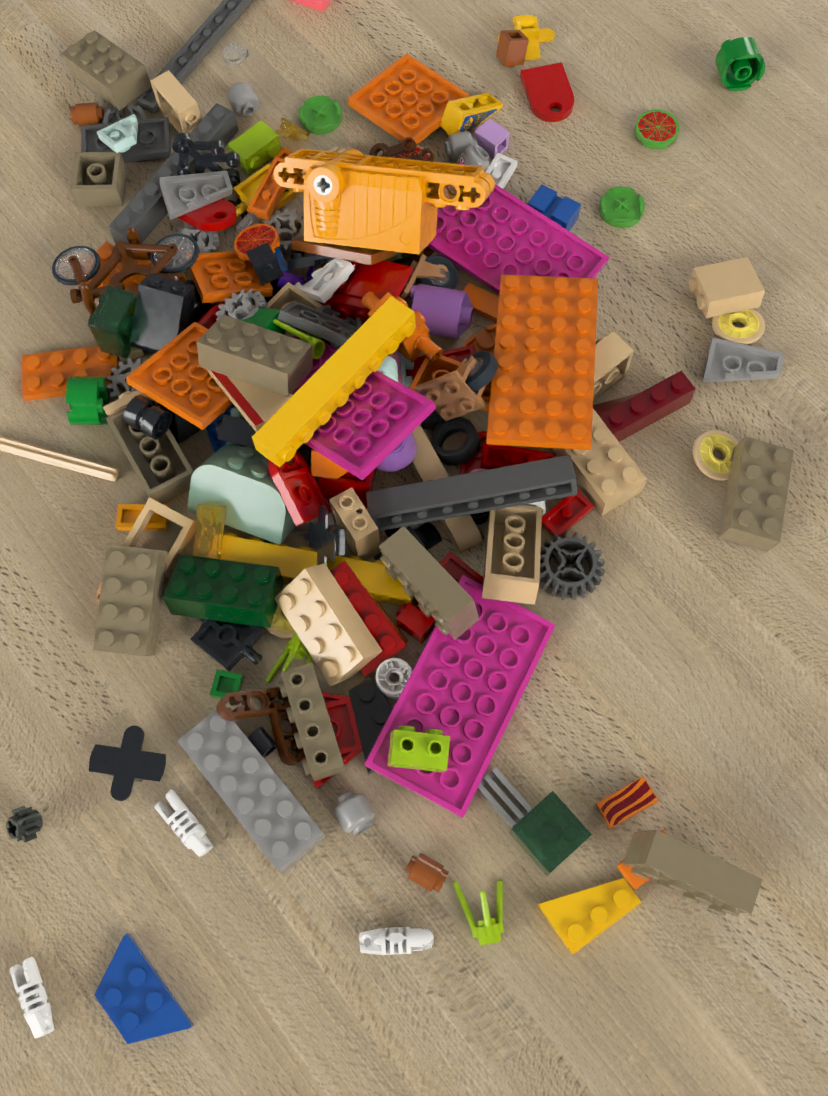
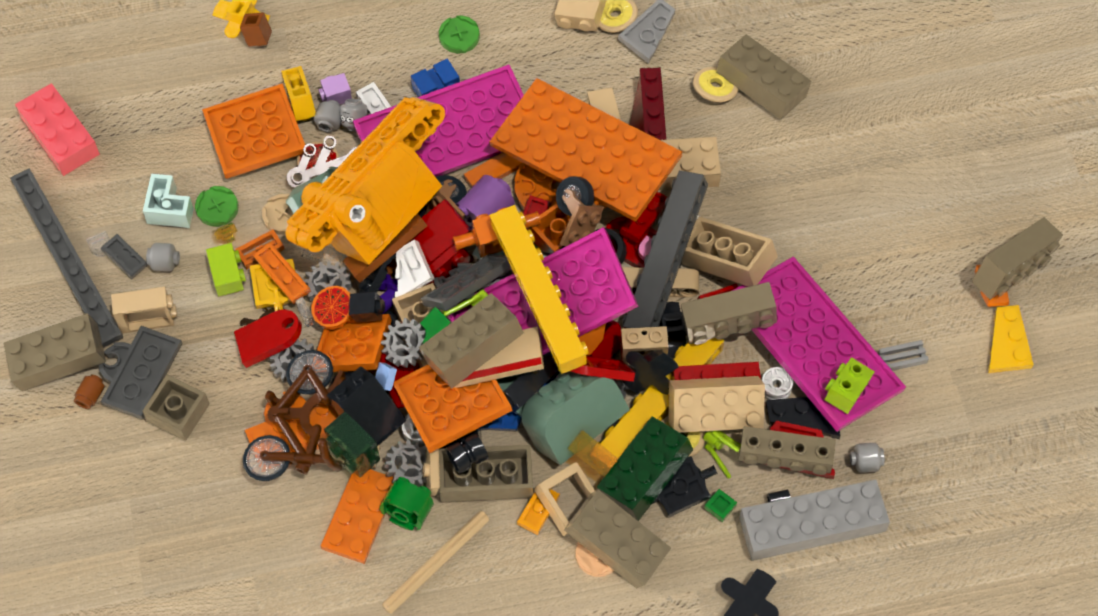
camera: 65 degrees left, 5 degrees down
(121, 134) = (144, 368): light aqua wing -> none
(148, 205) = (213, 347): dark grey brick -> none
(184, 824) = (817, 580): white hinge -> none
(185, 145) = (232, 301): black plant -> none
(193, 191) = (248, 333): light grey wing -> none
(198, 313) = (386, 375): none -> light blue tile
(229, 72) = (124, 256): none -> dark grey plate
(275, 712) = (765, 475): reddish brown beam -> none
(293, 70) = (164, 206): none -> light aqua brick
(395, 940) = (972, 472): white hinge -> none
(415, 622) = (740, 348): red brick -> none
(426, 872) = (934, 429): dark orange brick -> none
(488, 929) = (993, 409): lime plant -> none
(548, 89) = (311, 27): red tile -> none
(549, 833) = (945, 336): clear green brick -> none
(566, 514) = (710, 206): red plate -> none
(582, 582) = (757, 214): dark grey gear -> none
(626, 802) = (945, 279): tile -> none

